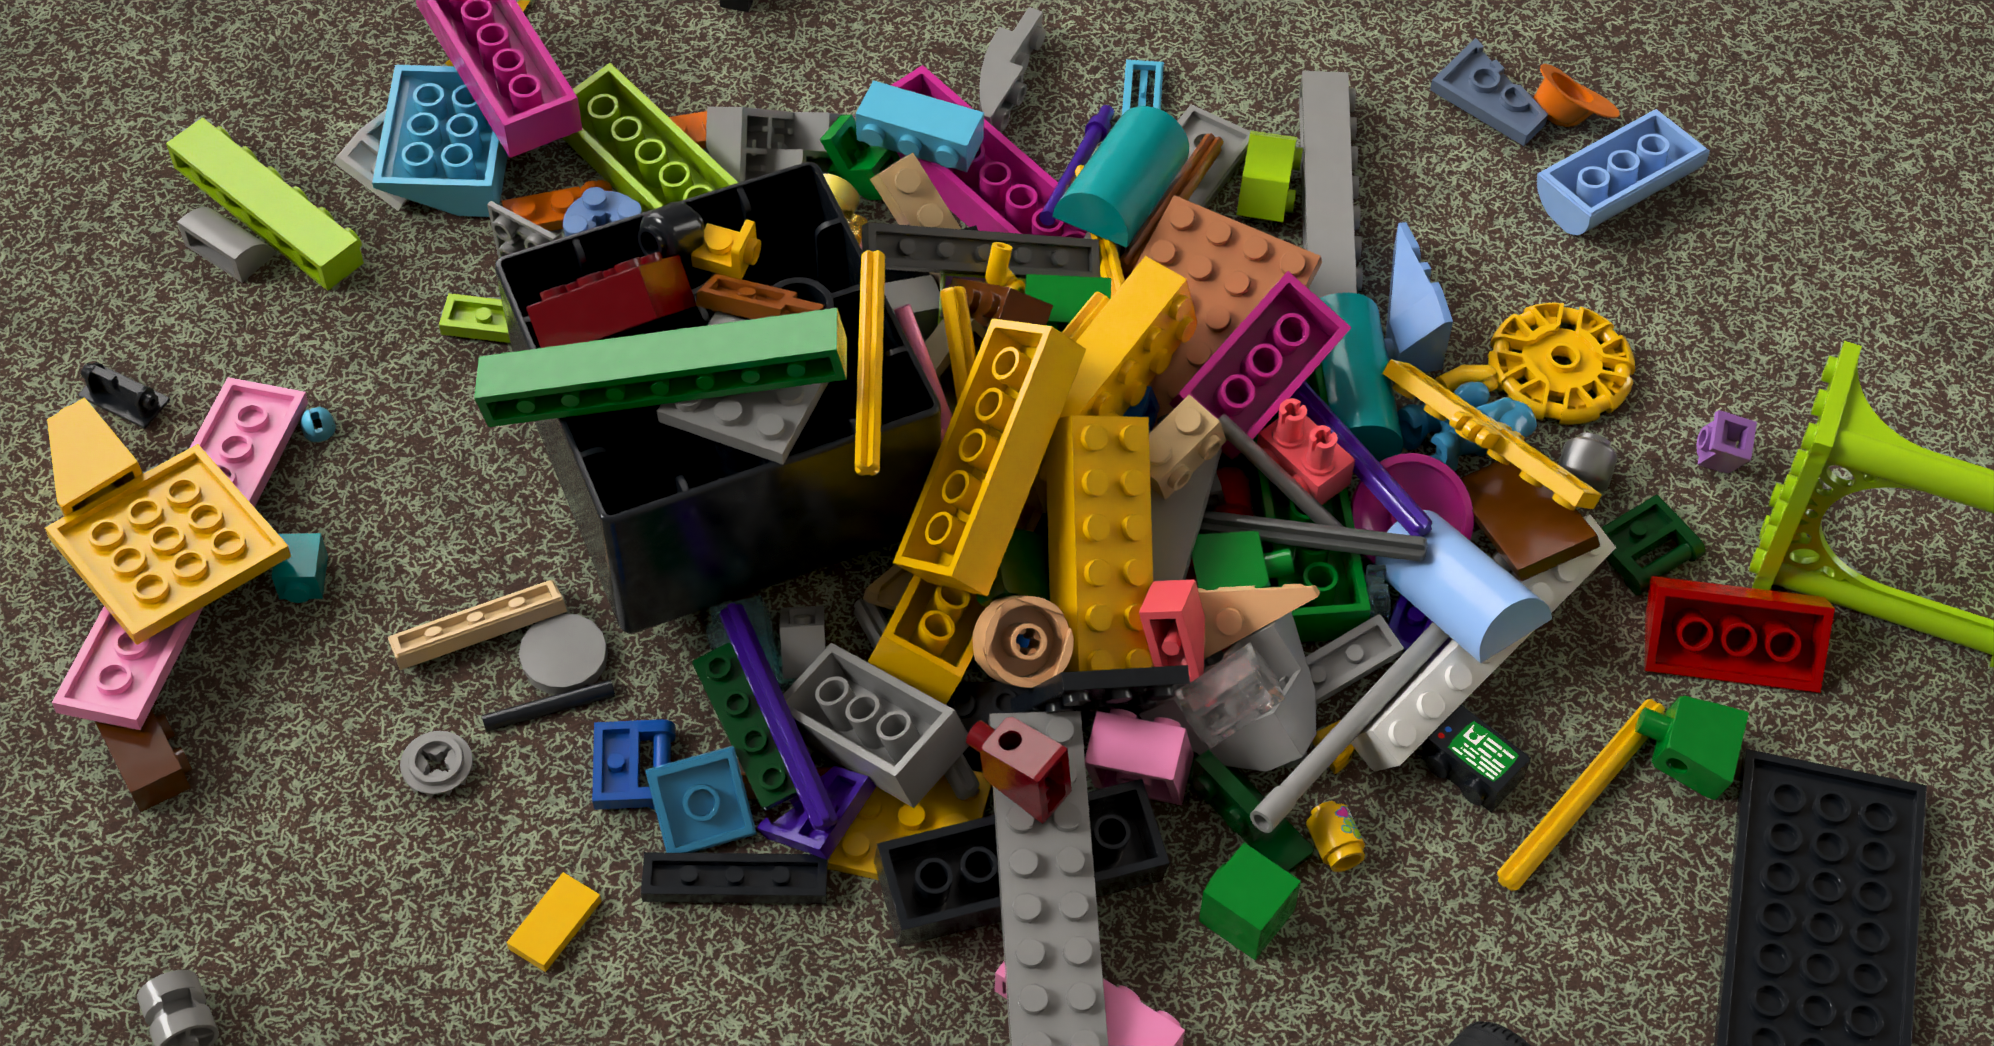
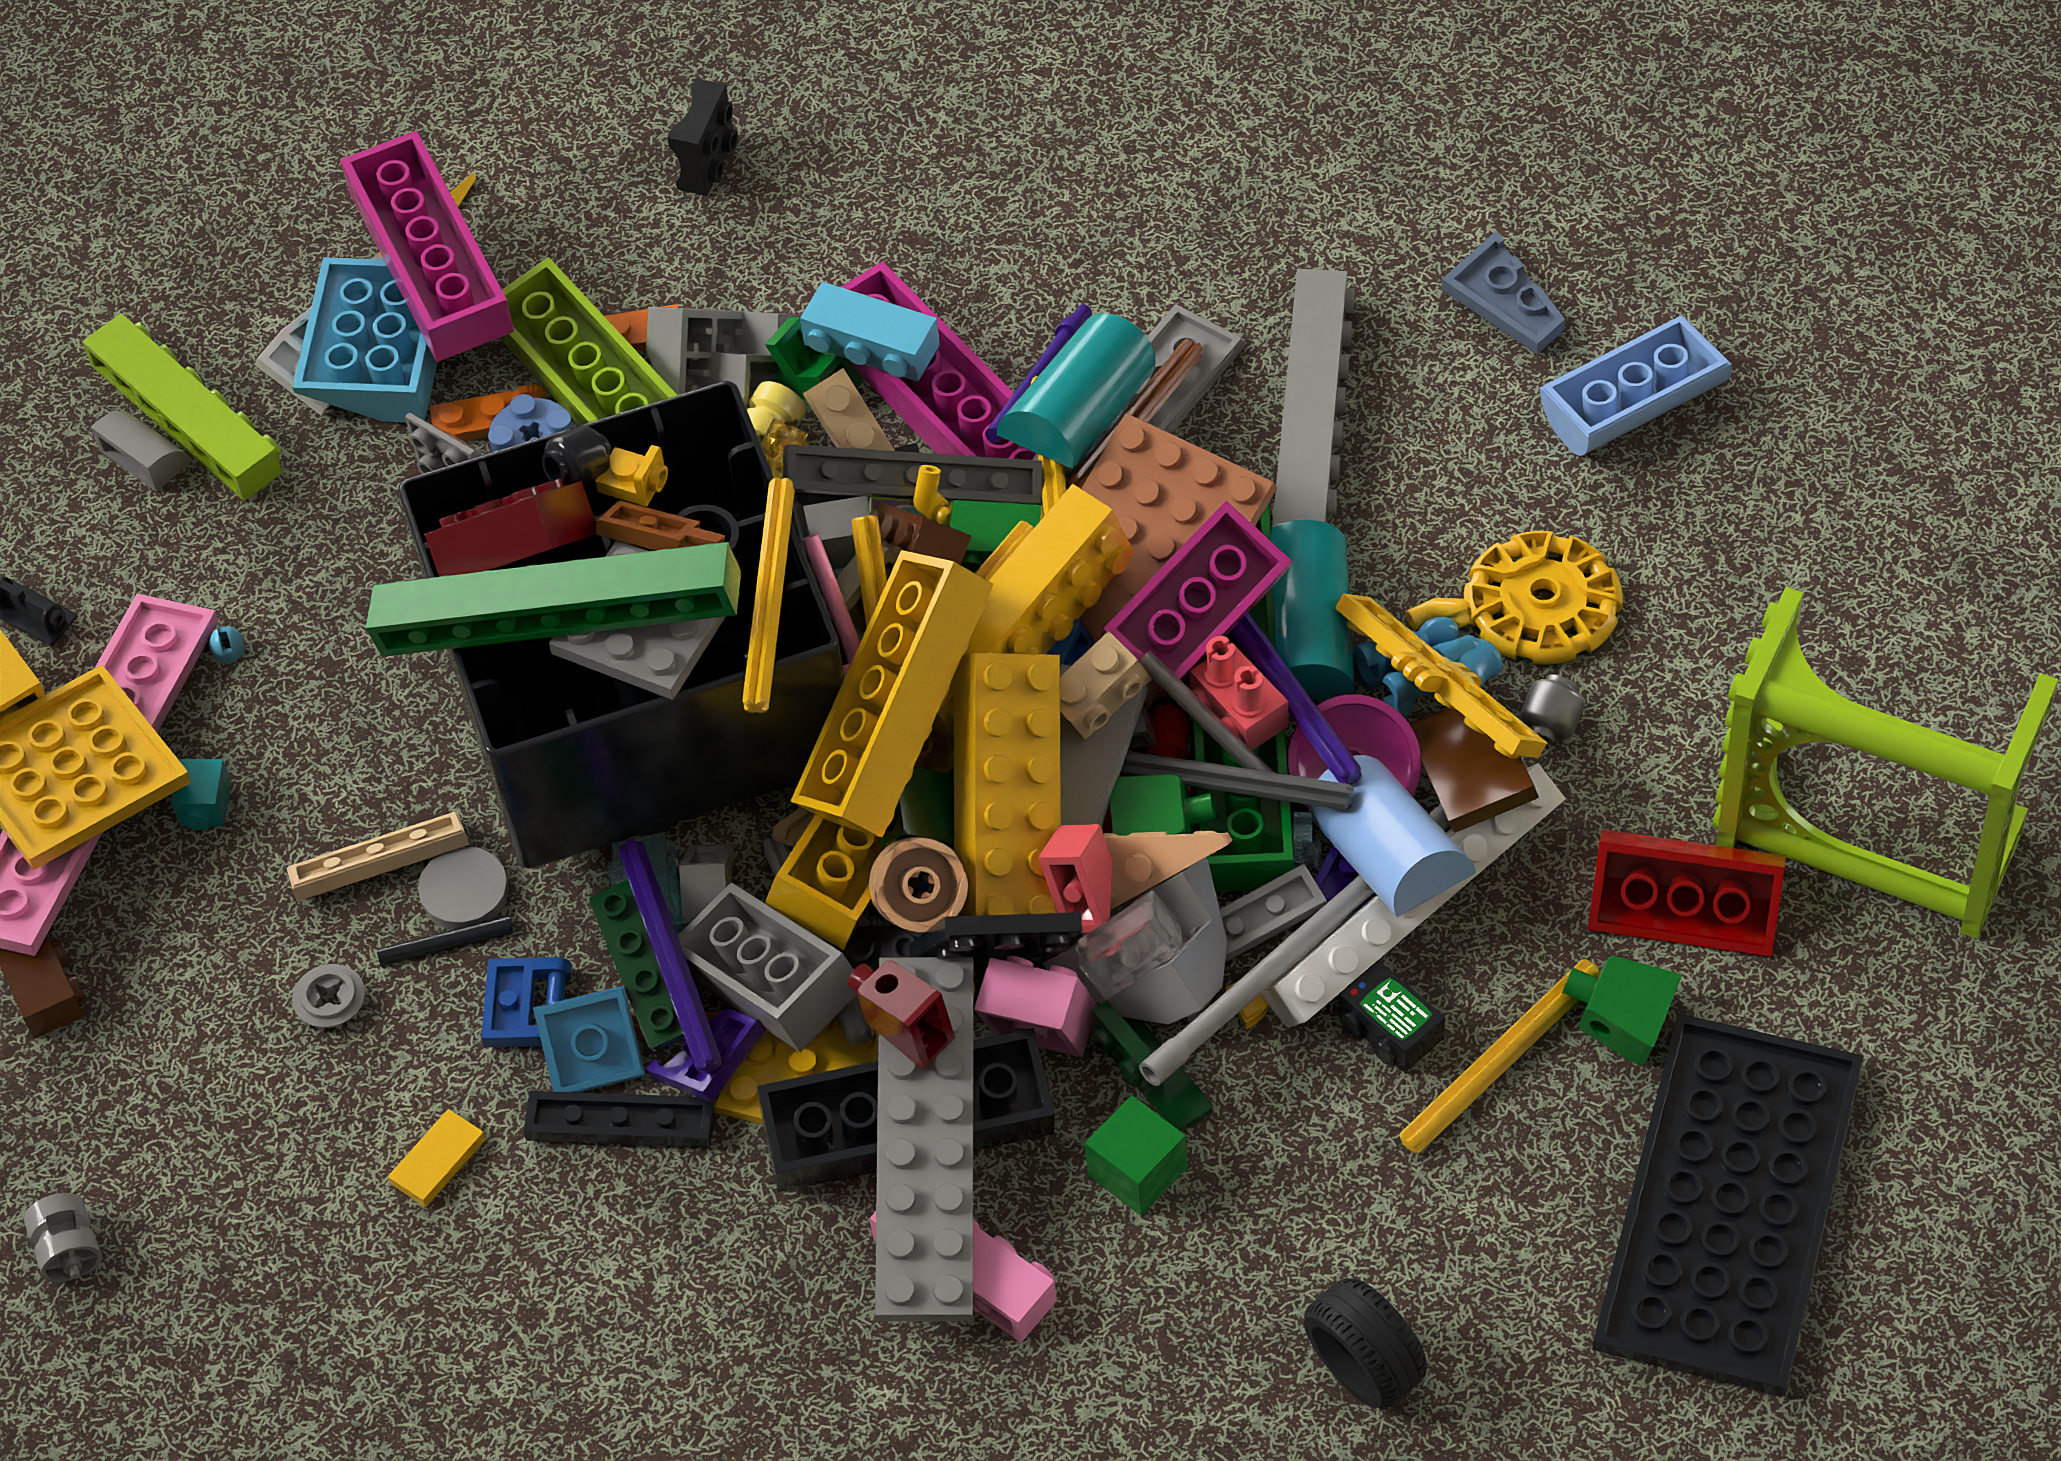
camera: 10 degrees right, 0 degrees up
(474, 318) = (385, 533): lime plate -> none
(1005, 65) = (973, 263): light grey slope -> none
(1143, 66) = (1130, 260): medium azure tile -> none
(1268, 175) = (1248, 386): lime brick -> none
(1336, 836) = (1236, 1092): yellow brick -> none
(1417, 309) = (1386, 541): medium blue wedge -> none
(1569, 101) = (1591, 303): orange piece -> none
(1643, 531) = (1602, 783): dark green plate -> none
(1718, 442) = (1703, 687): medium lavender brick -> none

